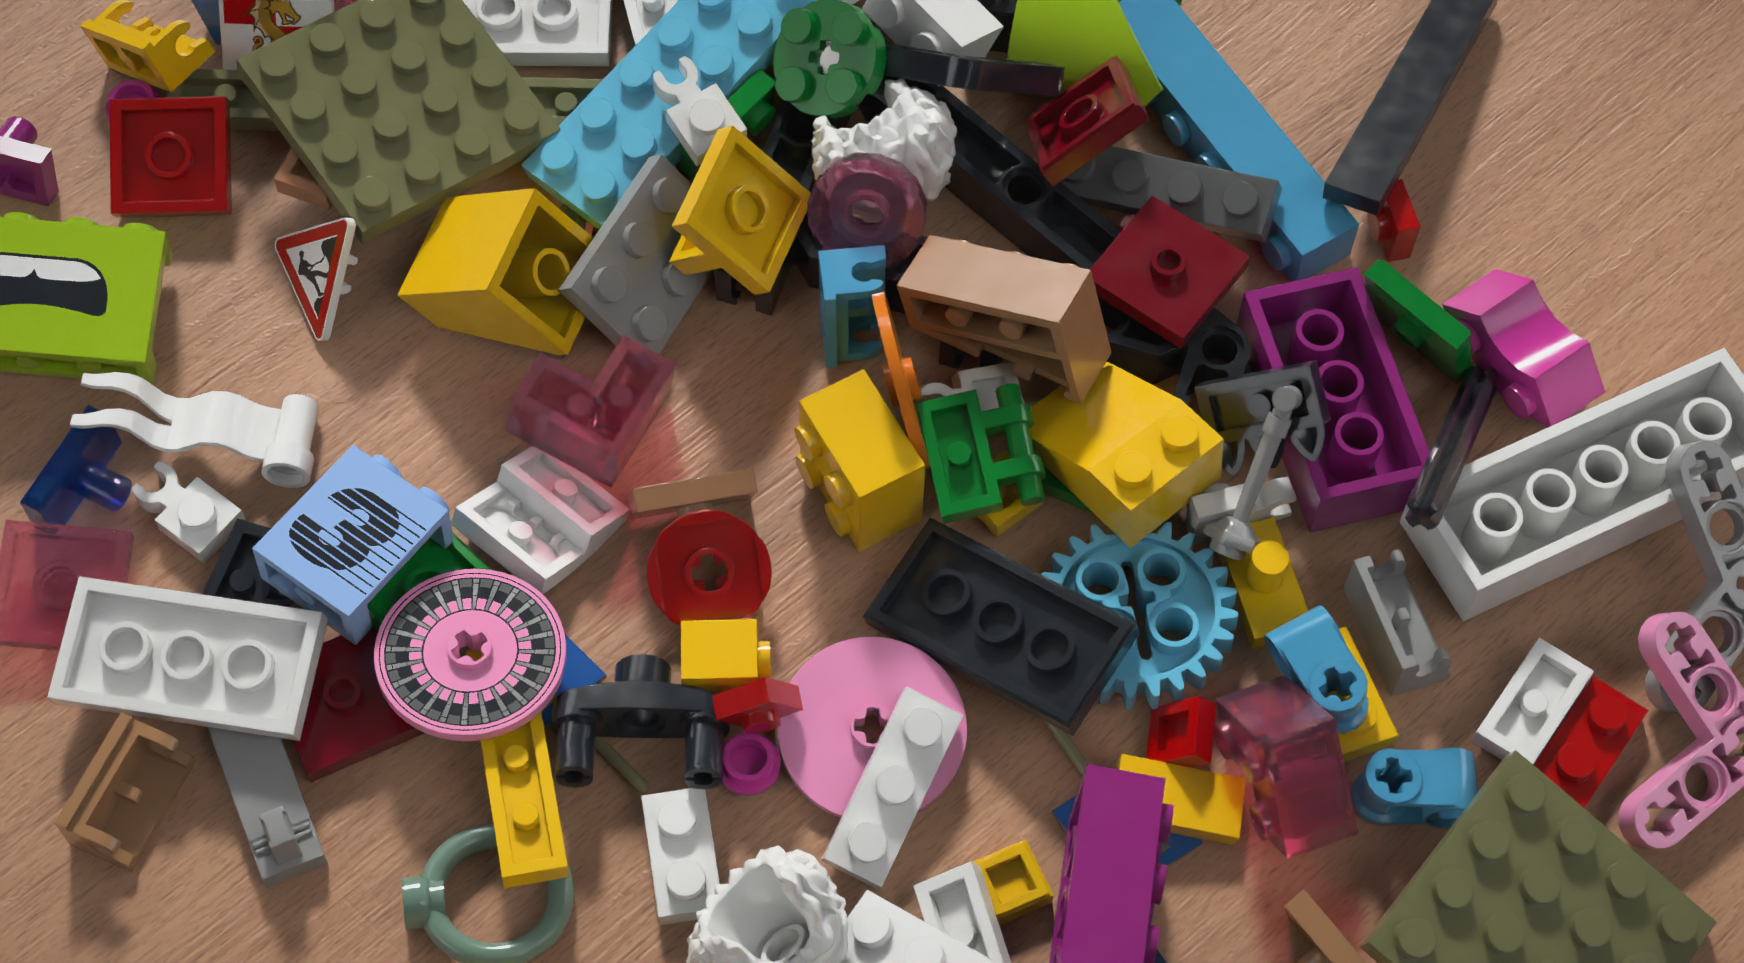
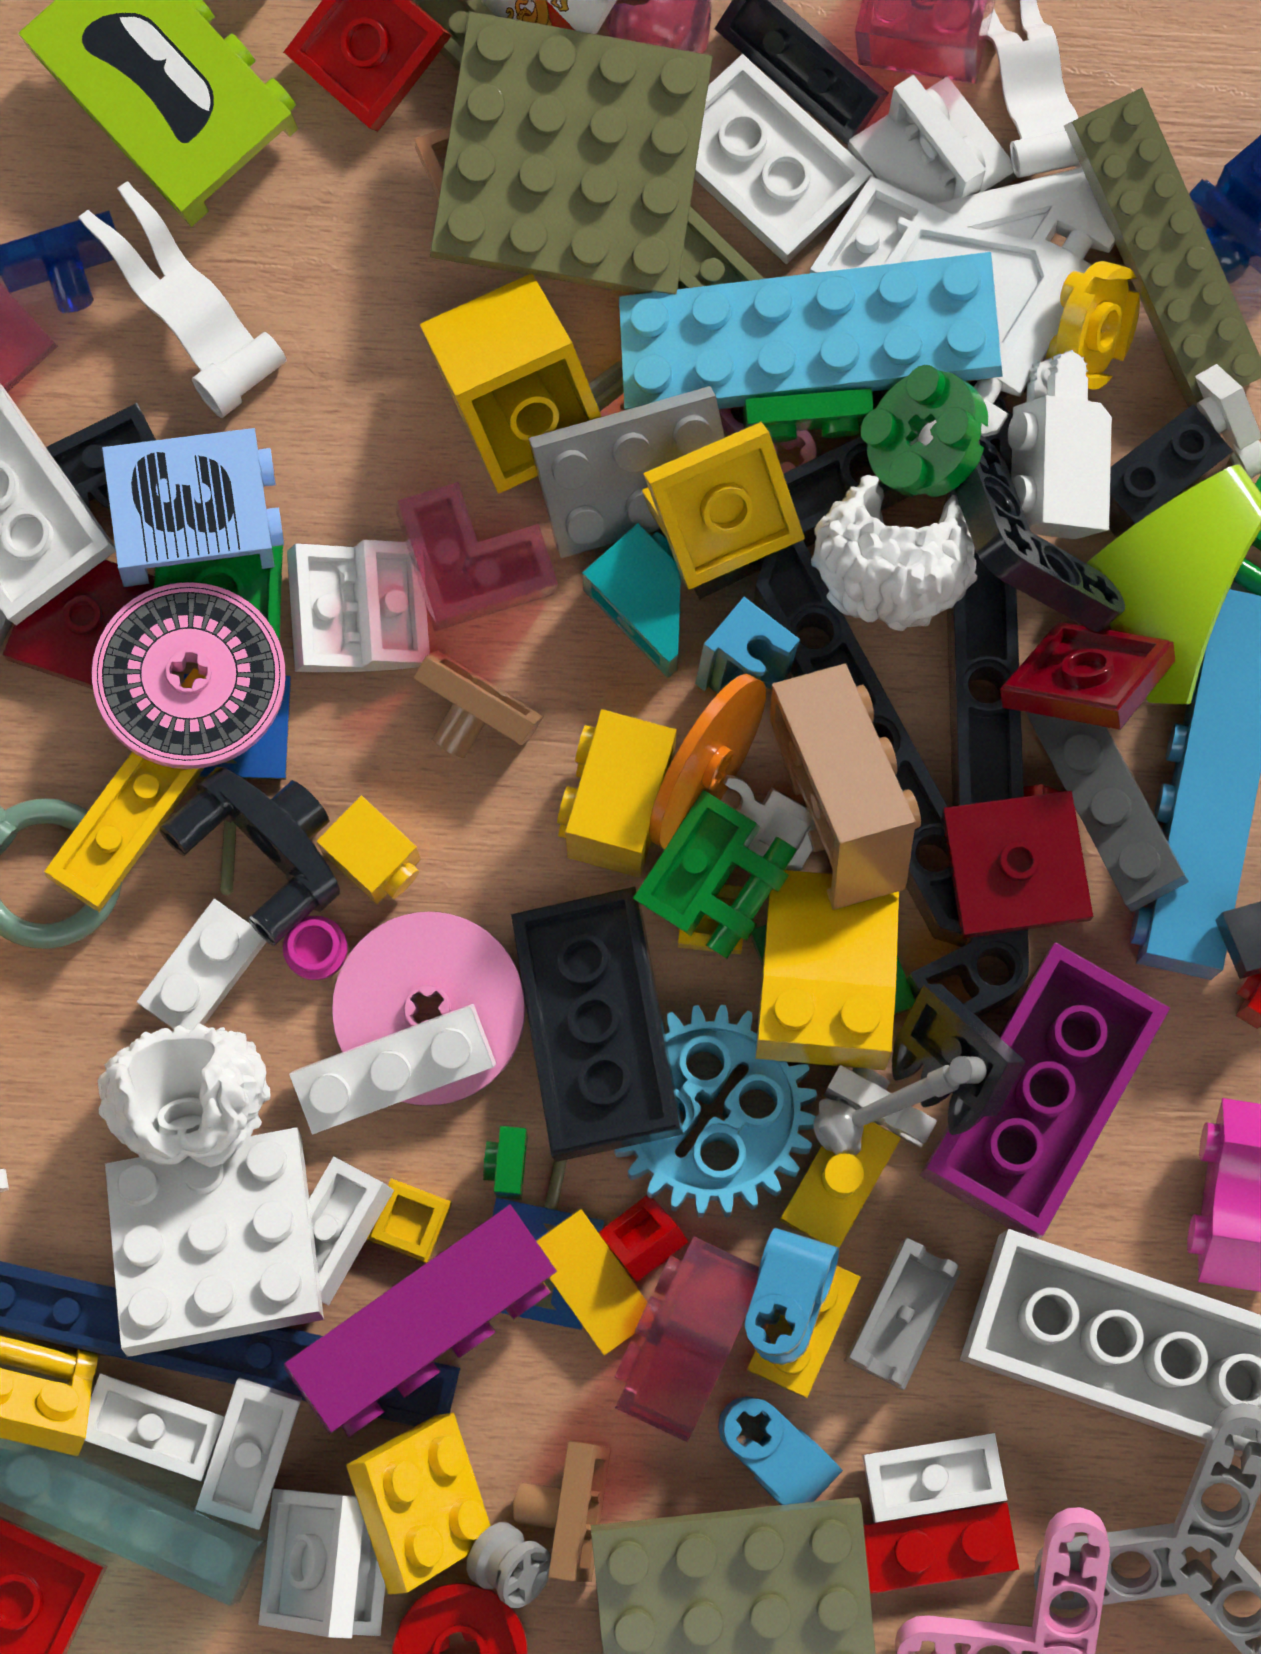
camera: 45 degrees right, 15 degrees up
(192, 516) = (117, 368): white plate -> none
(316, 269) = (391, 240): piece -> none
(696, 112) = (775, 391): white plate -> none
(731, 543) = (460, 762): red plate -> none
(737, 337) = (640, 593): none -> teal slope
(758, 704) = (351, 915): red plate -> none
(871, 179) = (844, 588): clear pink tile -> none
(1038, 773) = (506, 1162): none -> green plate
(1419, 321) = (1176, 1096): green plate -> none
(1451, 448) = (1076, 1227): black axle -> none

